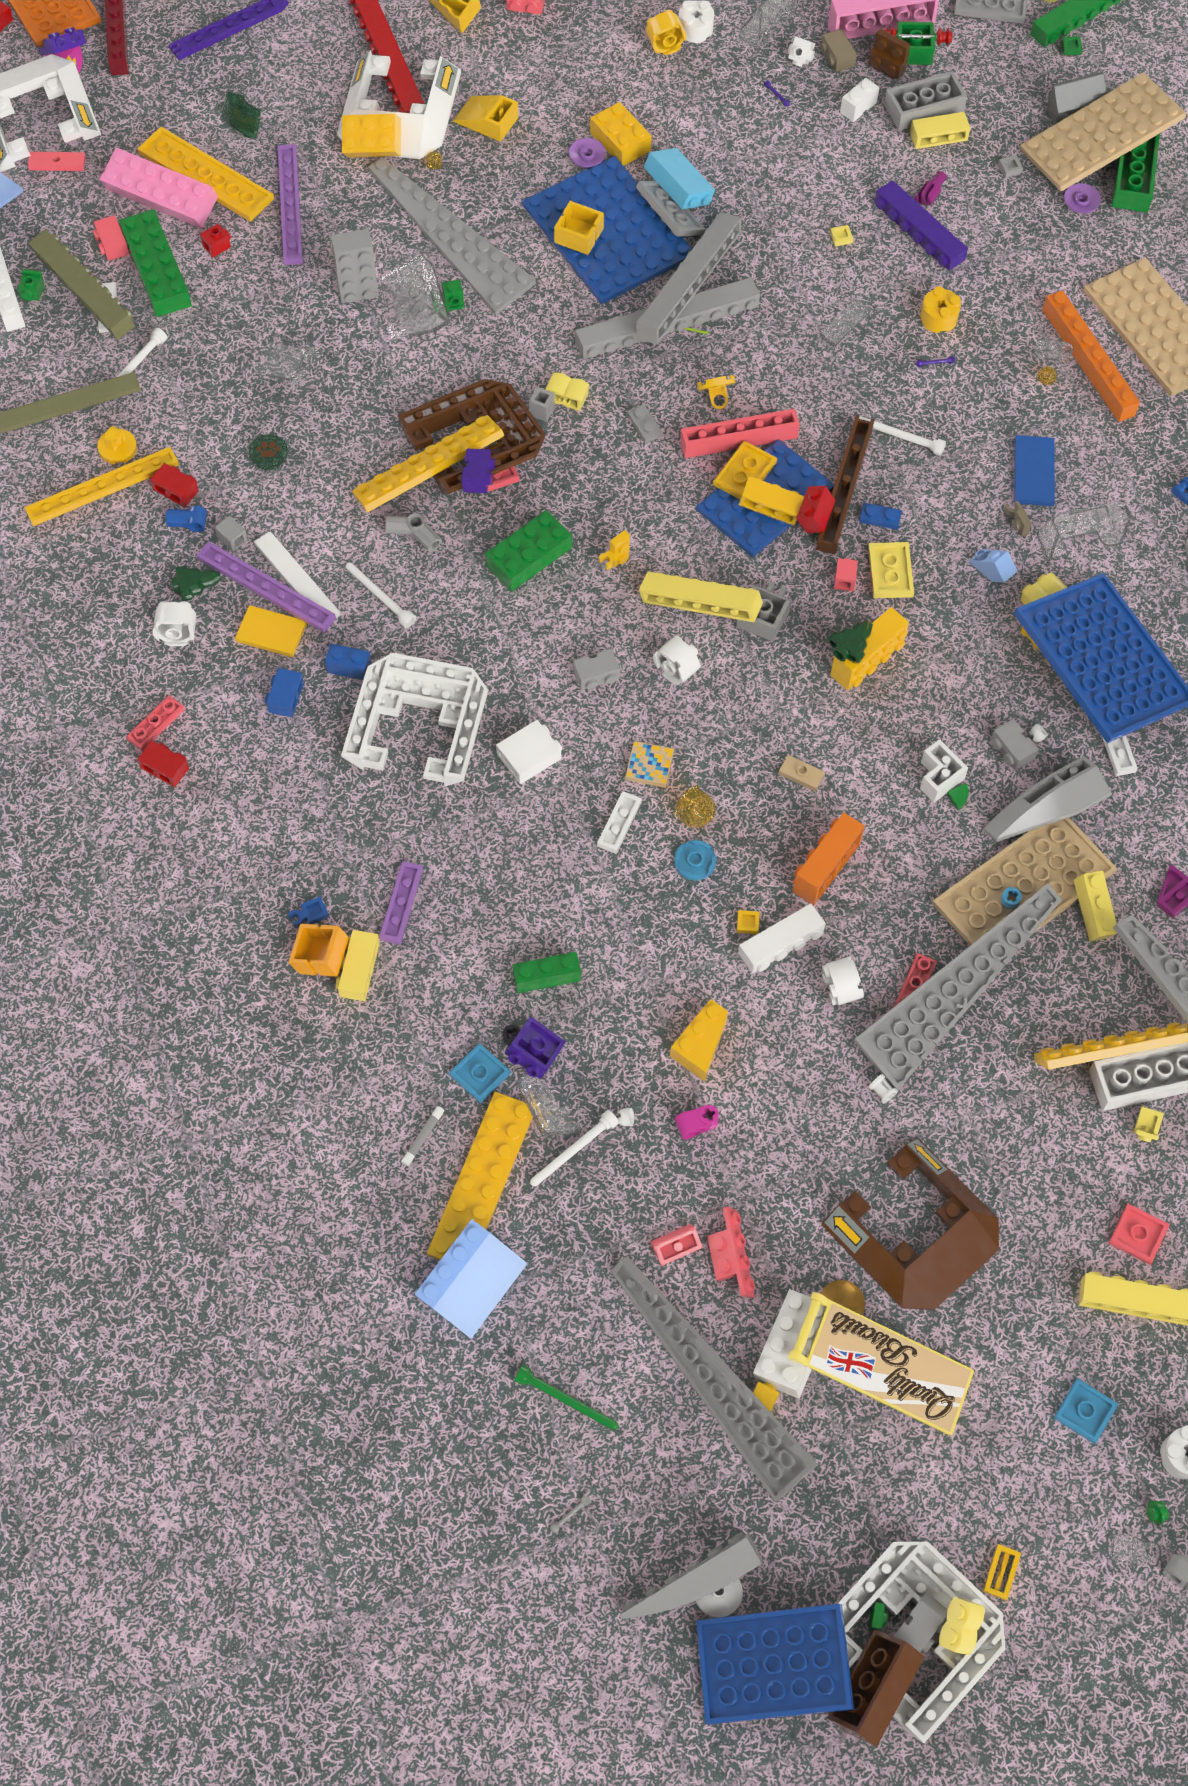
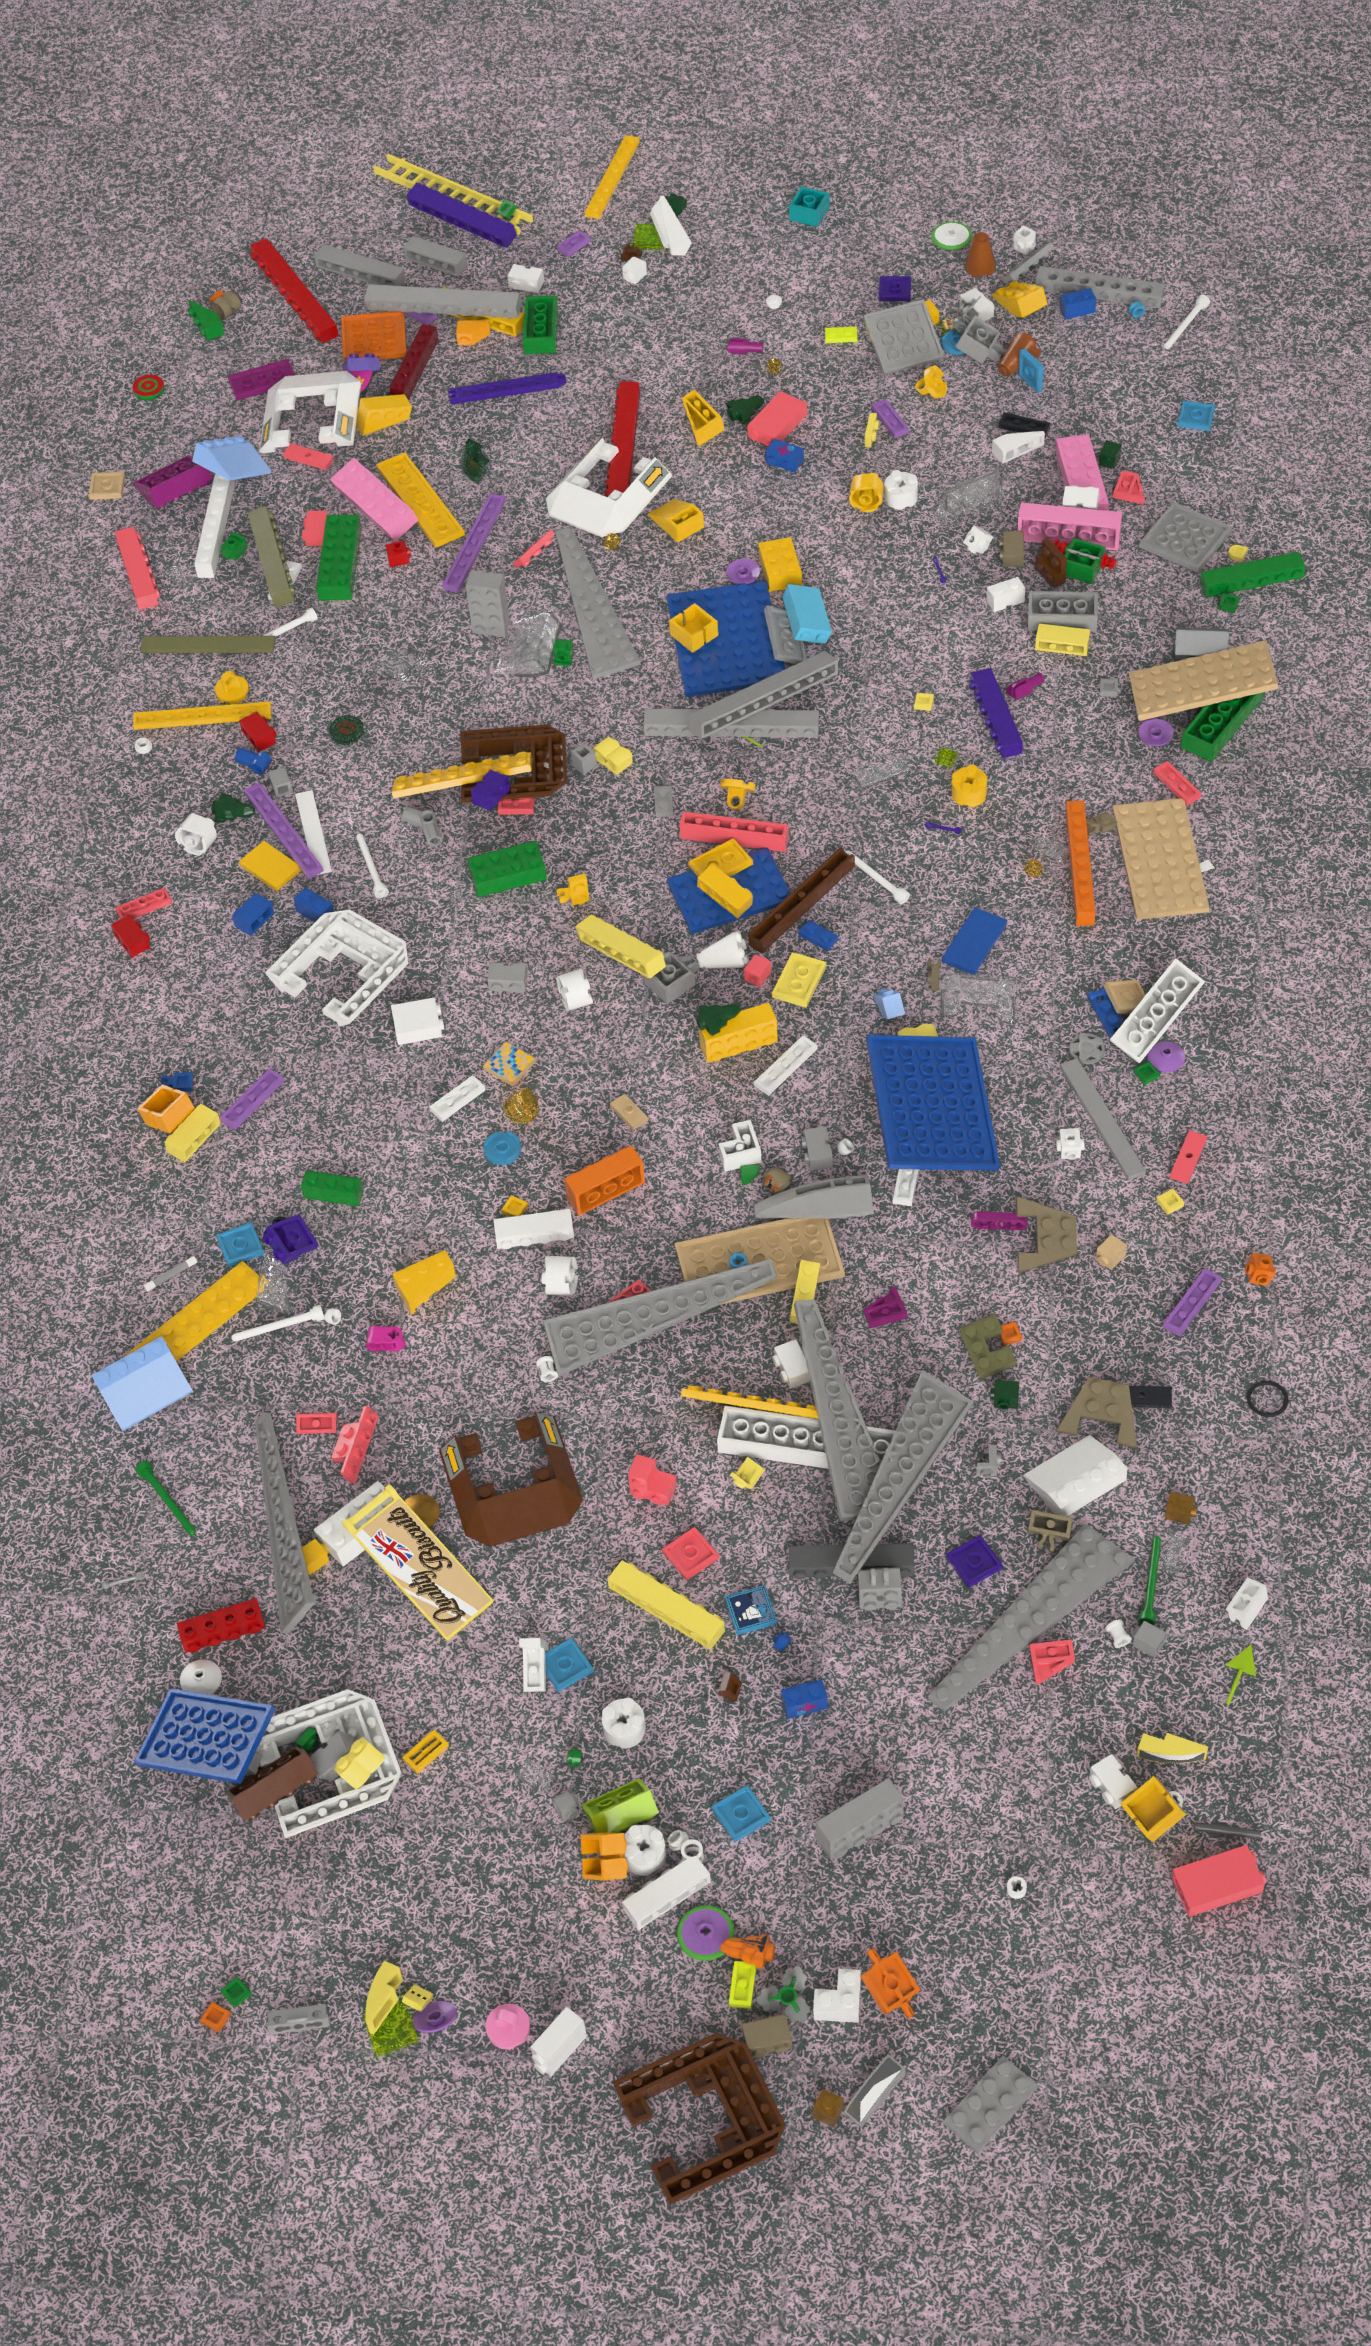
camera: 30 degrees right, 10 degrees down
(50, 538) = (143, 745): none -> white plate
(112, 89) = (381, 412): none -> yellow wedge
(357, 192) = (534, 550): none -> coral tile
(371, 135) = (566, 506): yellow brick -> none
(558, 17) = (784, 455): none -> blue brick
(701, 1579) = (187, 1655): light grey wedge -> none
(710, 1523) = (221, 1625): none -> red brick
(805, 567) = (725, 953): none -> white cone
(815, 509) = (757, 908): red brick -> none
(896, 287) = (946, 757): none -> clear neon green tile
(930, 666) = (785, 1065): none -> white plate
(994, 794) = (776, 1180): none -> dark tan head
(1061, 1173) = (649, 1482): none -> coral brick
(1061, 1425) = (534, 1664): none -> white bracket
(1086, 306) = (1102, 822): none -> dark tan plate
(1123, 987) = (791, 1363): none -> white brick
(1130, 243) = (1177, 783): none -> coral plate

